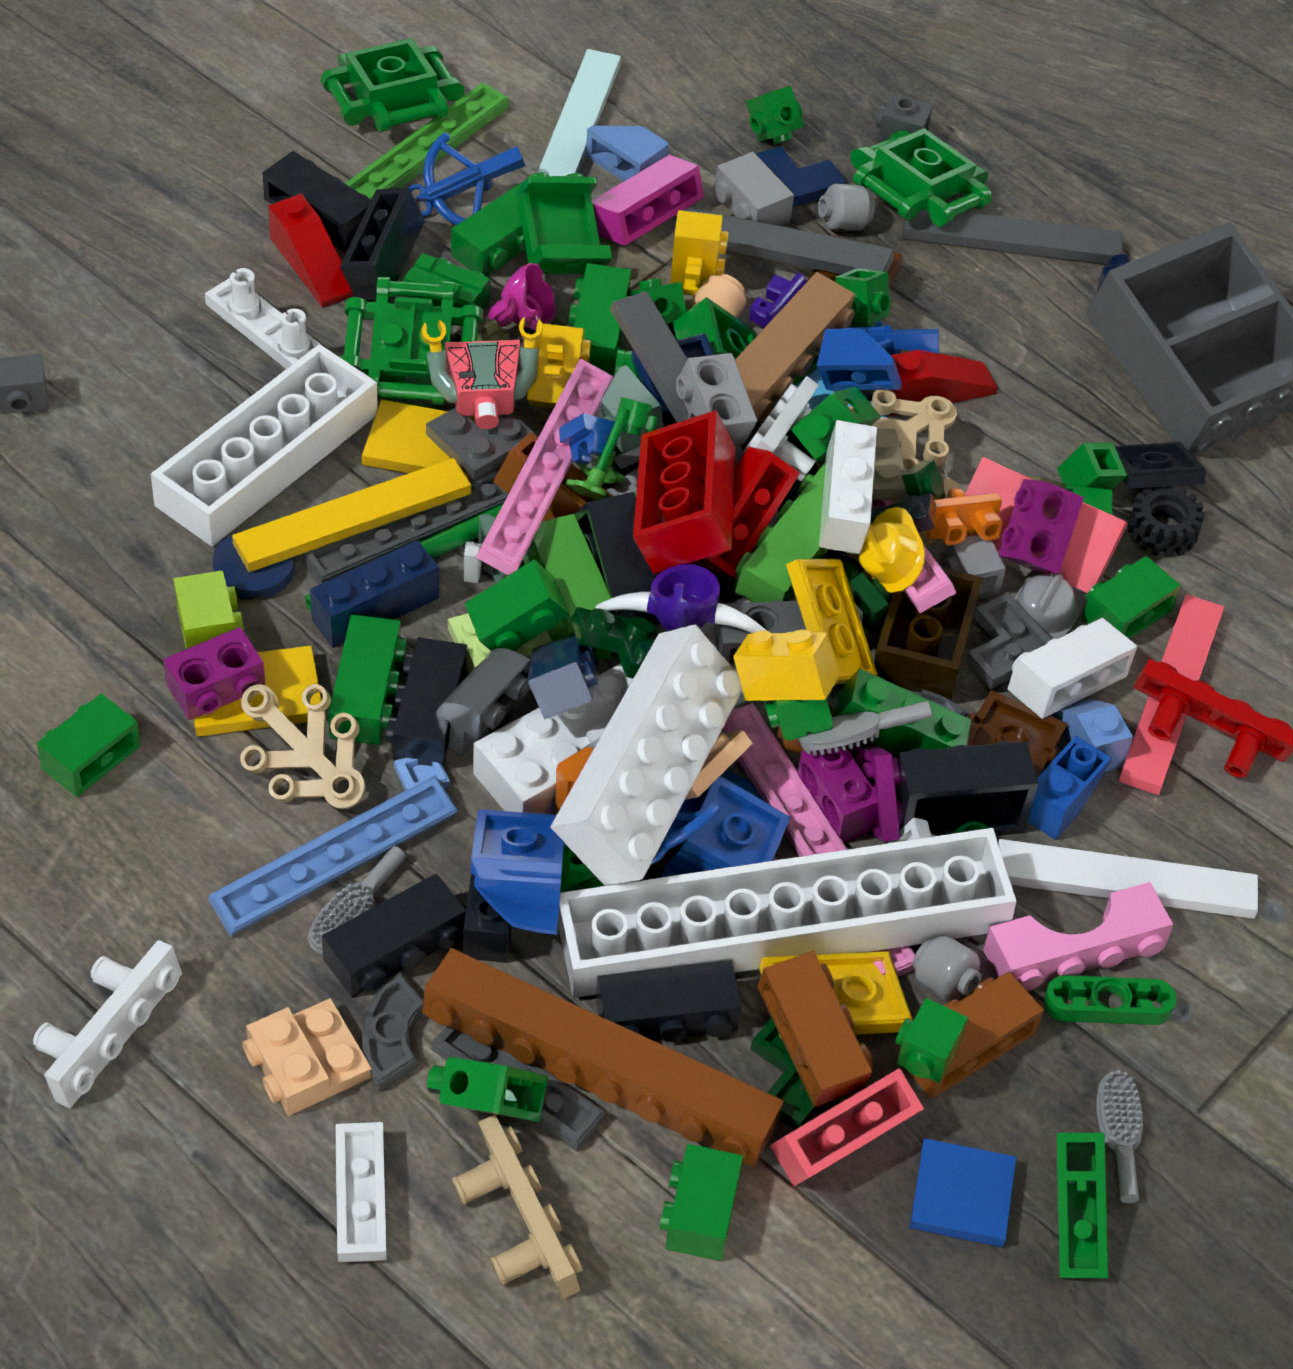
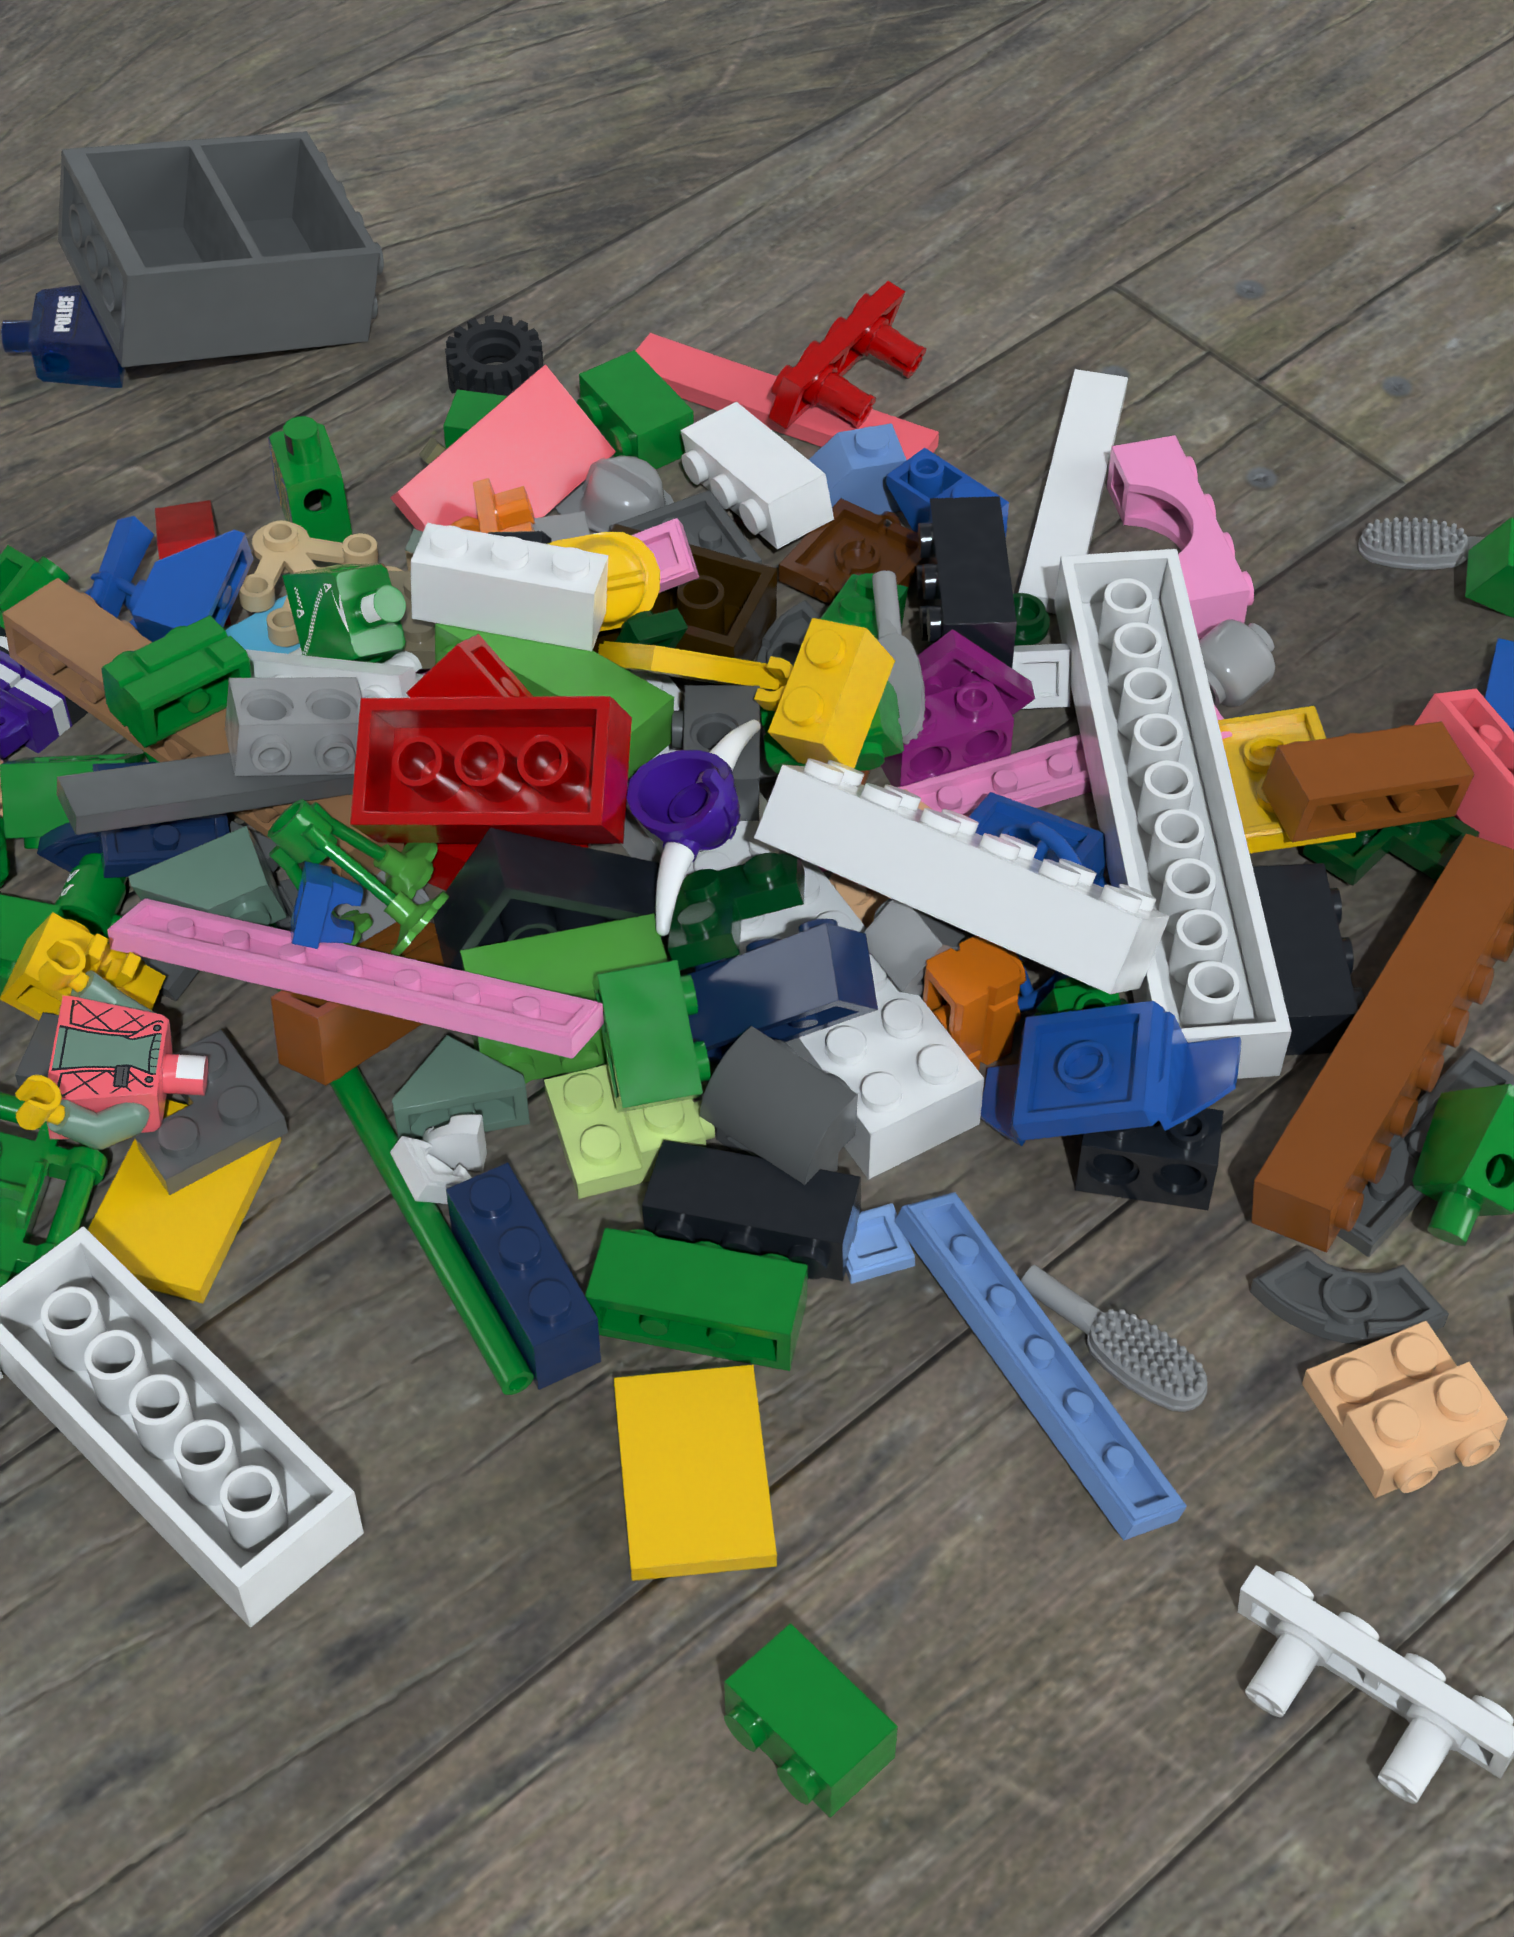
camera: 80 degrees left, 0 degrees up
(206, 607) = (547, 1525): lime brick -> none
(213, 673) = (679, 1507): magenta brick -> none
(264, 581) = (414, 1467): dark blue tile -> none
(308, 751) = (847, 1379): tan plant -> none
(351, 514) = (347, 1308): yellow tile -> none
(367, 546) = (367, 1236): dark grey tile -> none
(394, 935) = (1196, 1278): black brick -> none
(447, 548) = (424, 1173): none -> white tile
(761, 350) = (174, 680): none -> green brick
(930, 1040) = (1387, 661): green brick -> none
(998, 1020) = (1331, 655): dark orange brick -> none
(1000, 425) = (306, 462): none -> green torso
(1047, 528) = (541, 448): magenta brick -> none
(1092, 466) = (413, 408): green brick -> none
(1124, 988) = (1267, 512): green beam -> none
(1159, 465) = (404, 353): black tile -> none

